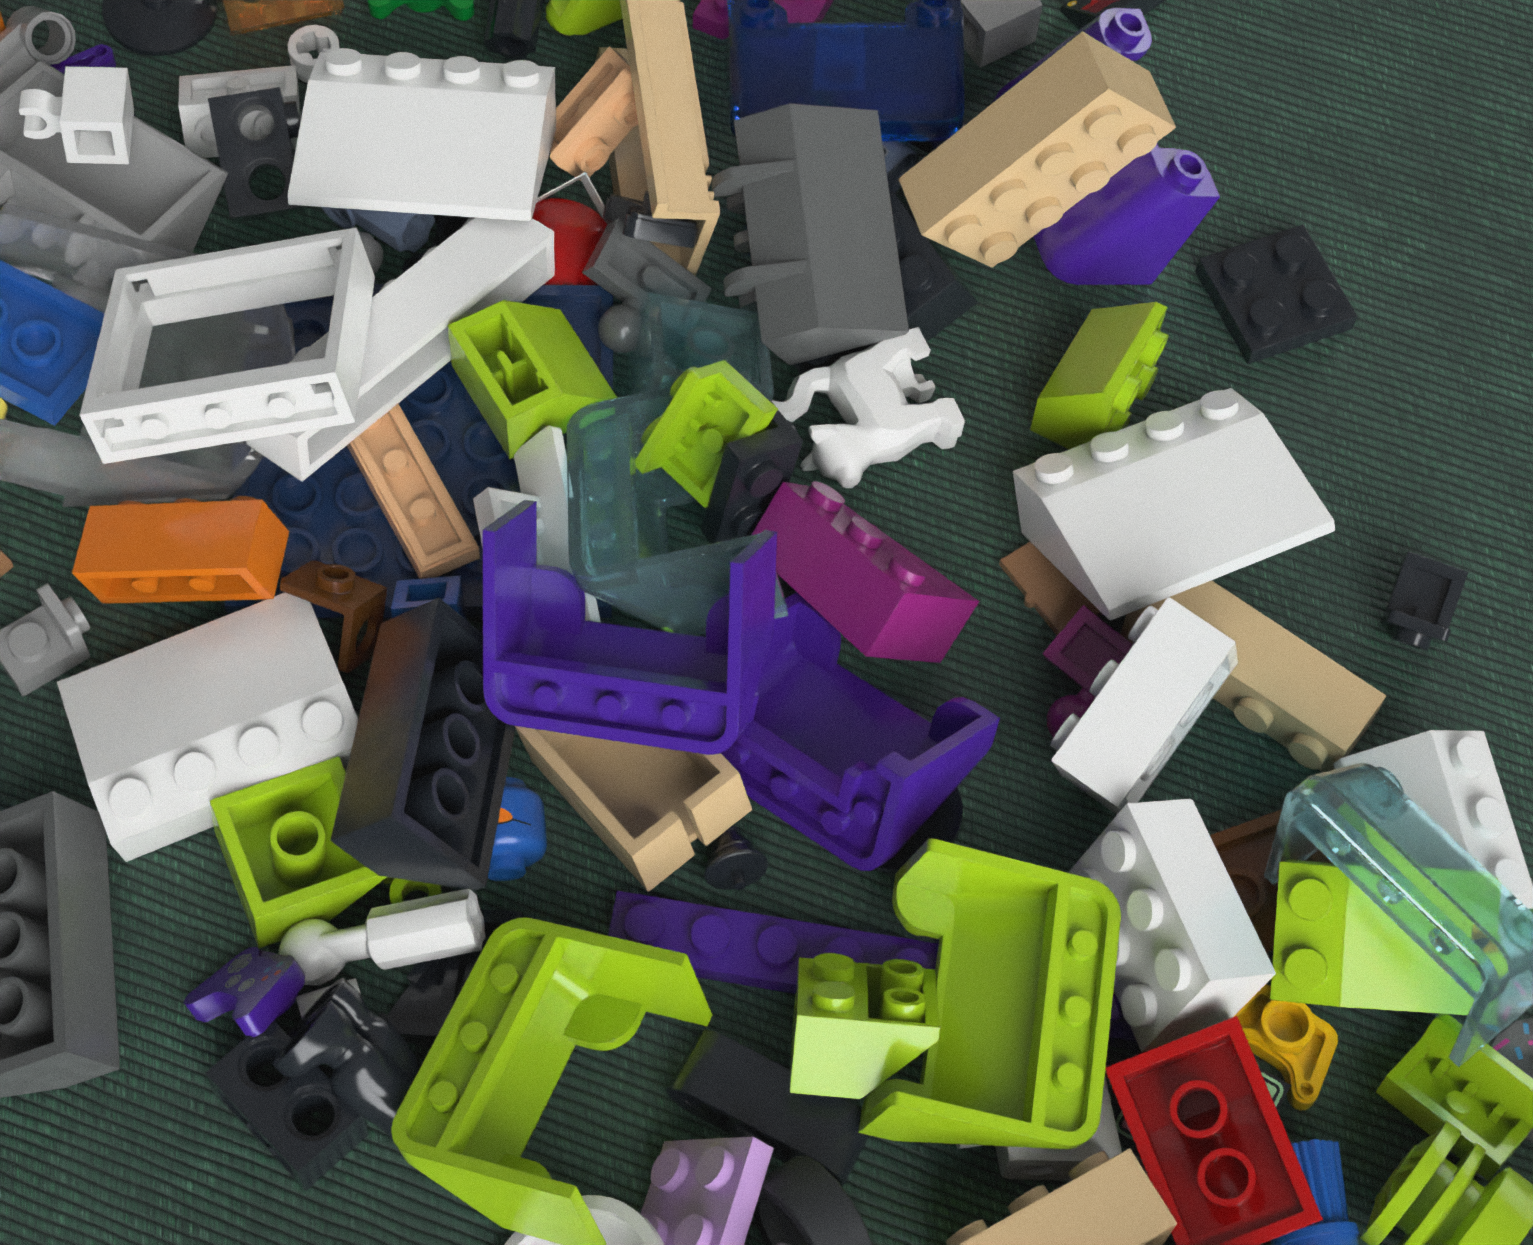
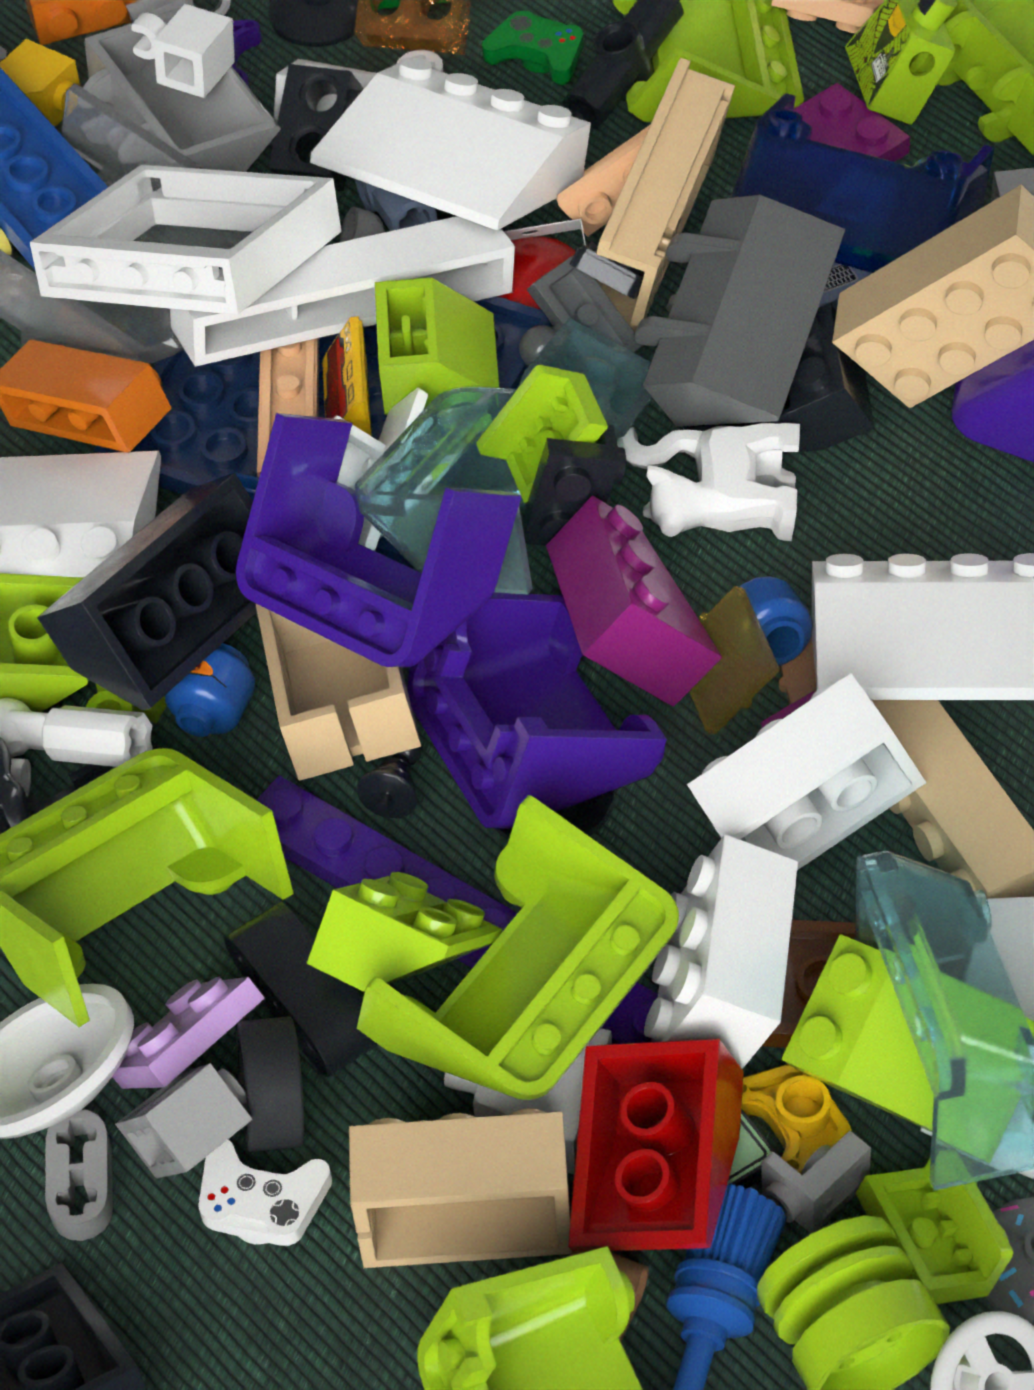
camera: 35 degrees right, 10 degrees down
(343, 592) = (179, 460): reddish brown bracket -> none
(456, 439) = (347, 377): none -> slope
(993, 545) = (781, 616): none -> blue head
(1006, 598) = (745, 662): none -> clear yellow piece
(1102, 374) = (950, 513): lime slope -> none
(1343, 1097) = (823, 1186): none -> light grey bracket

